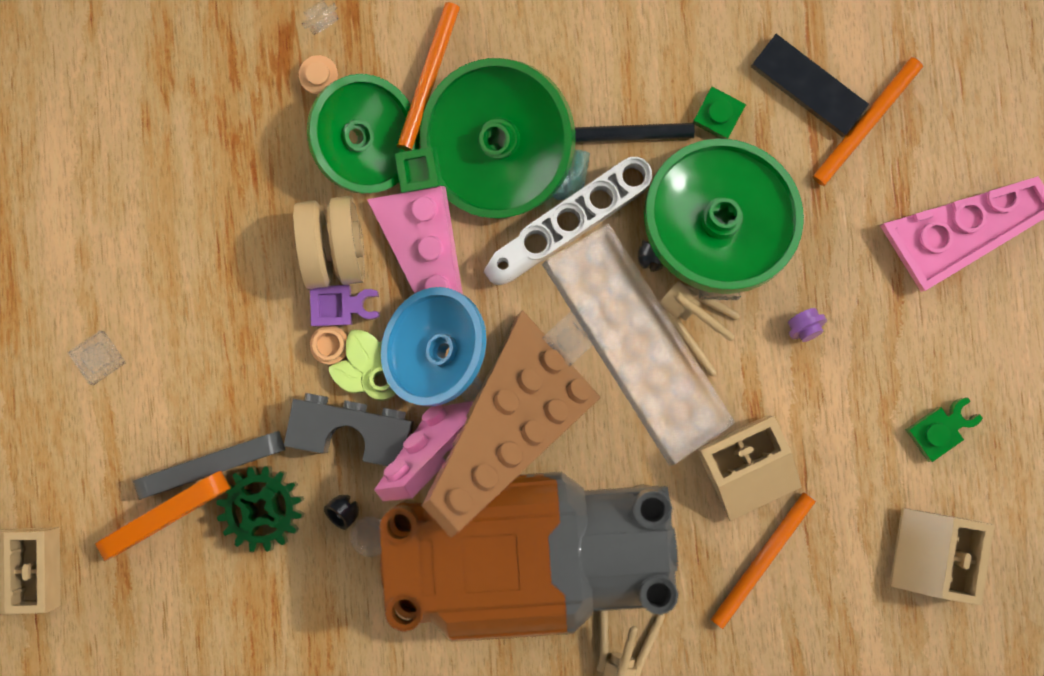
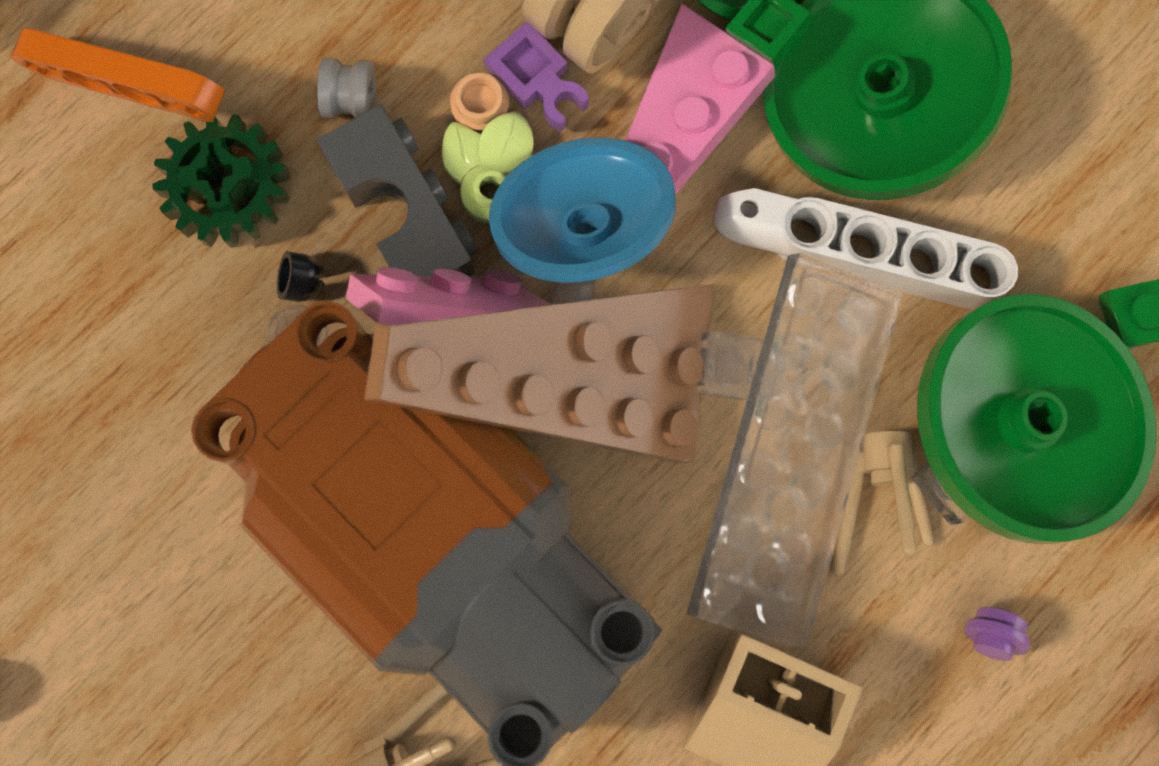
camera: 40 degrees right, 5 degrees down
(208, 465) = (242, 91): dark grey beam -> none
(266, 406) = (345, 88): none -> light grey wheel
(576, 176) = (923, 209): clear light blue arm -> none
(635, 132) = (1028, 237): black bar -> none
(647, 257) = (909, 371): black hinge -> none

